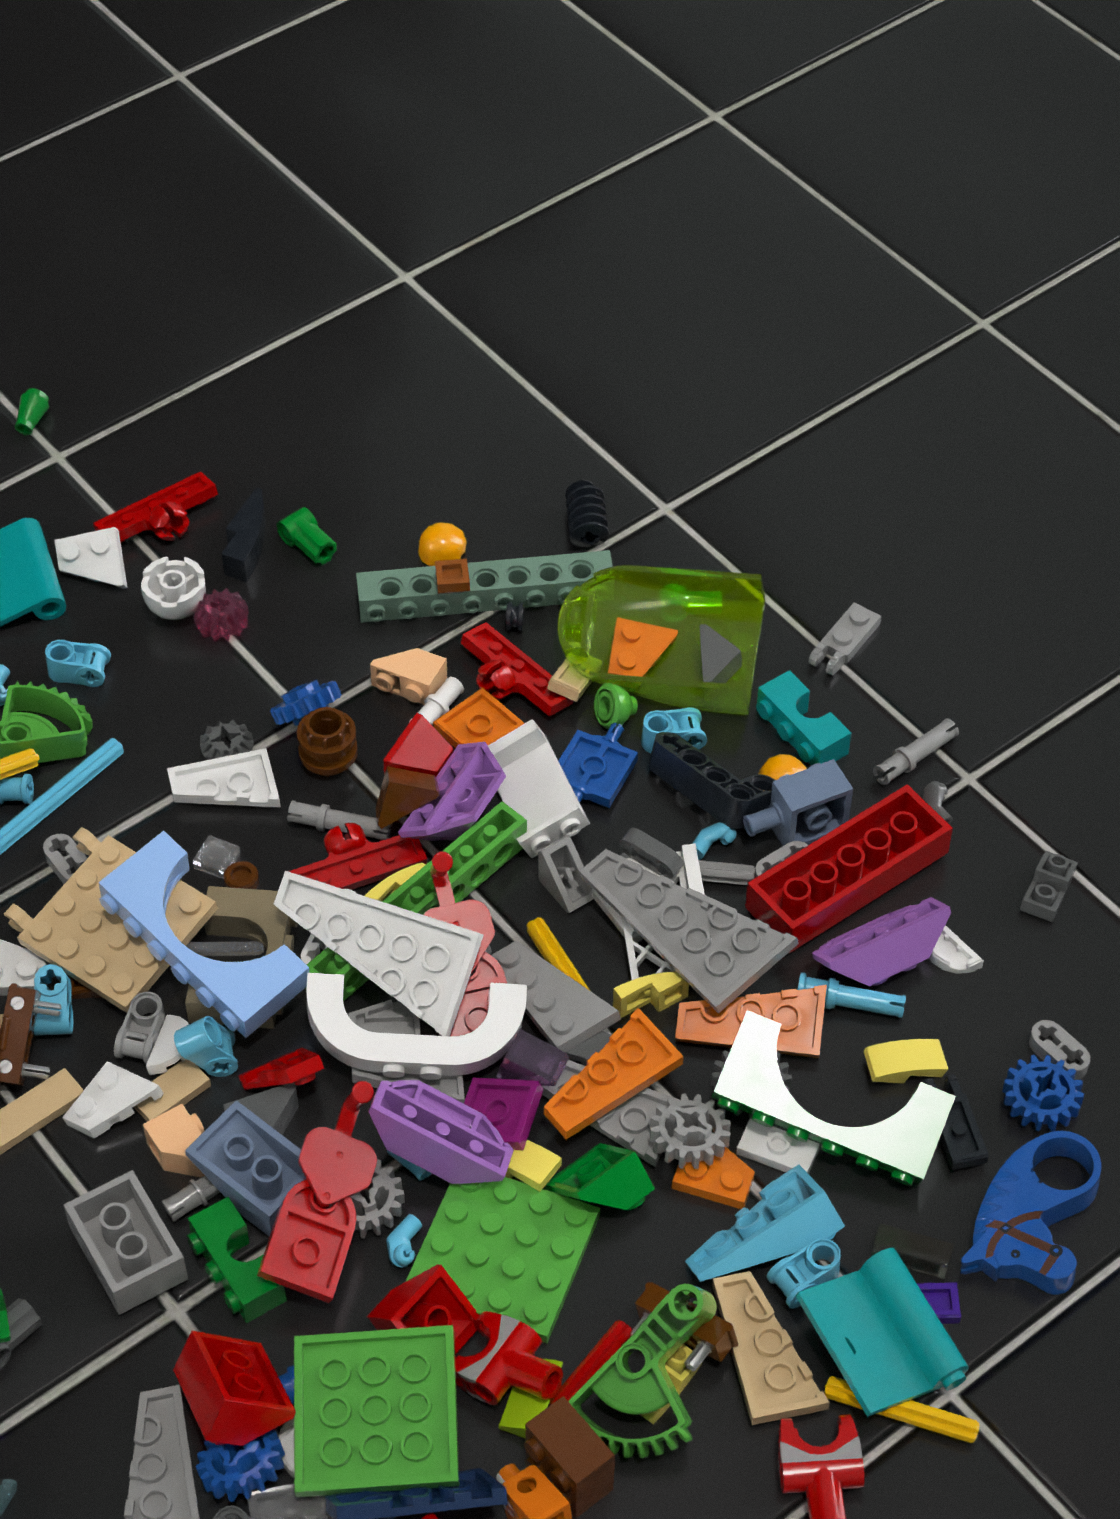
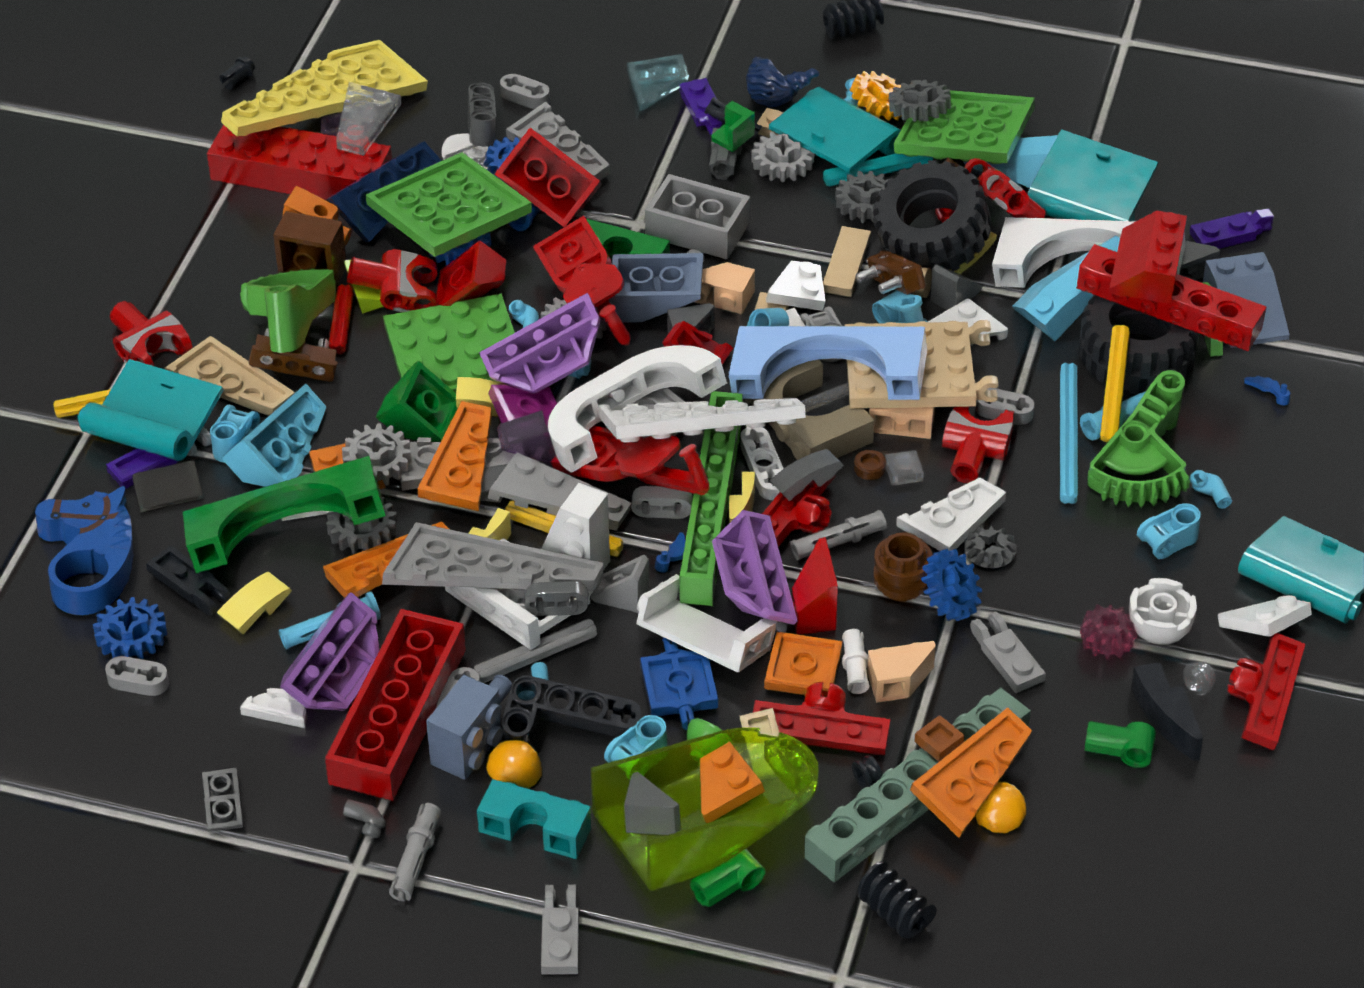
camera: 145 degrees right, 5 degrees down
(134, 831) = (976, 440): none -> red connector
(197, 546) = (1199, 677): none -> clear plate
(311, 648) = (1007, 653): none -> light grey hinge
(323, 862) = (816, 466): none -> dark grey slope
(403, 793) = (790, 545): reddish brown slope -> none
(473, 542) = (968, 775): none -> orange wing
(489, 892) = (674, 553): none -> blue piece
(580, 913) = (582, 526): none -> white wedge

